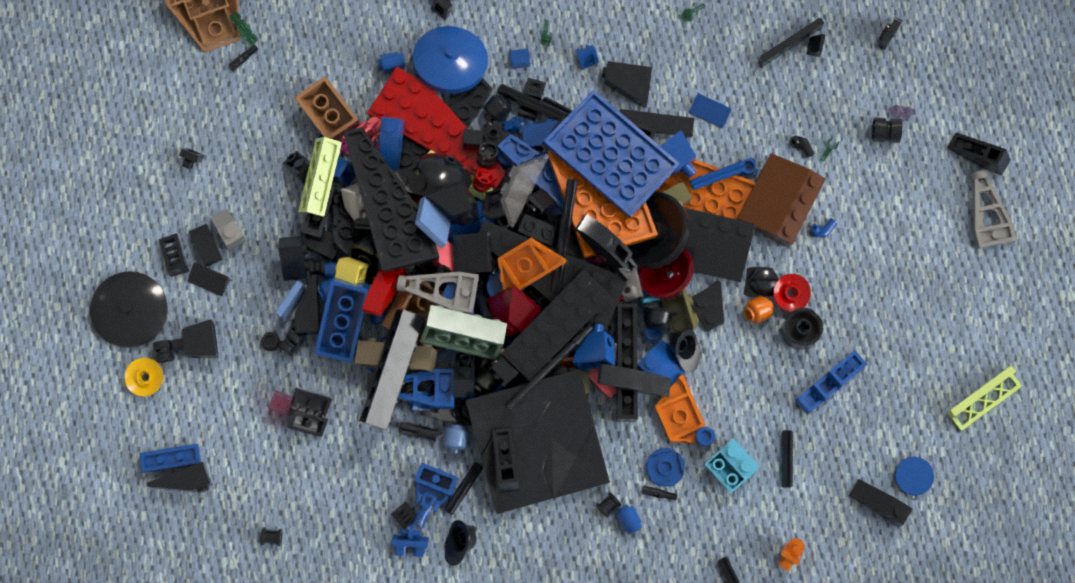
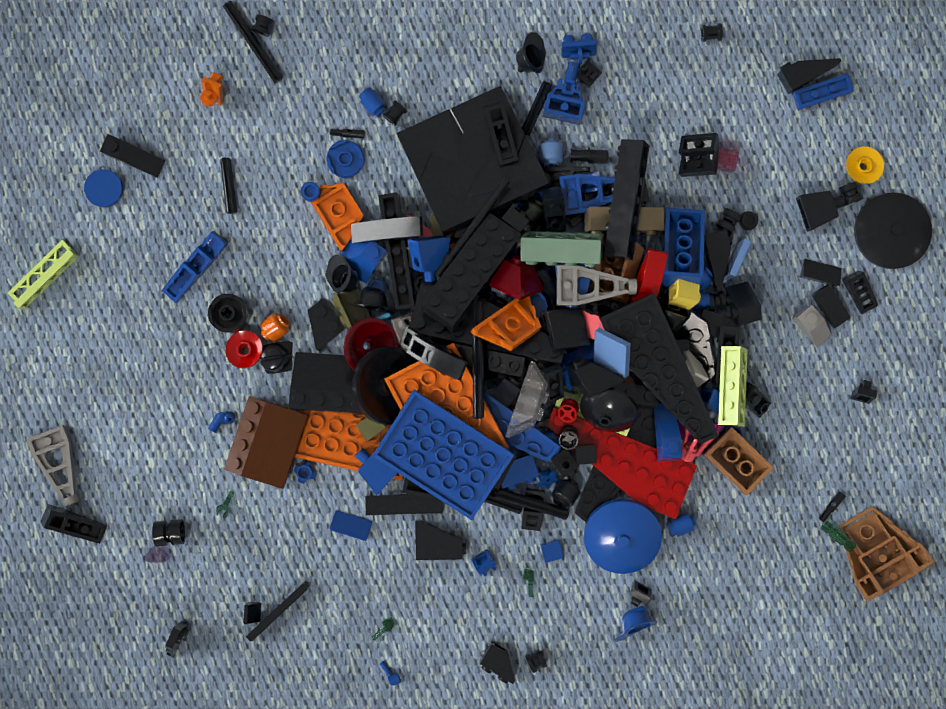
camera: 170 degrees right, 10 degrees up
(717, 175) = (334, 456): blue axle -> none
(732, 465) = (281, 166): medium azure slope -> none
(803, 144) = (253, 506): black arm -> none

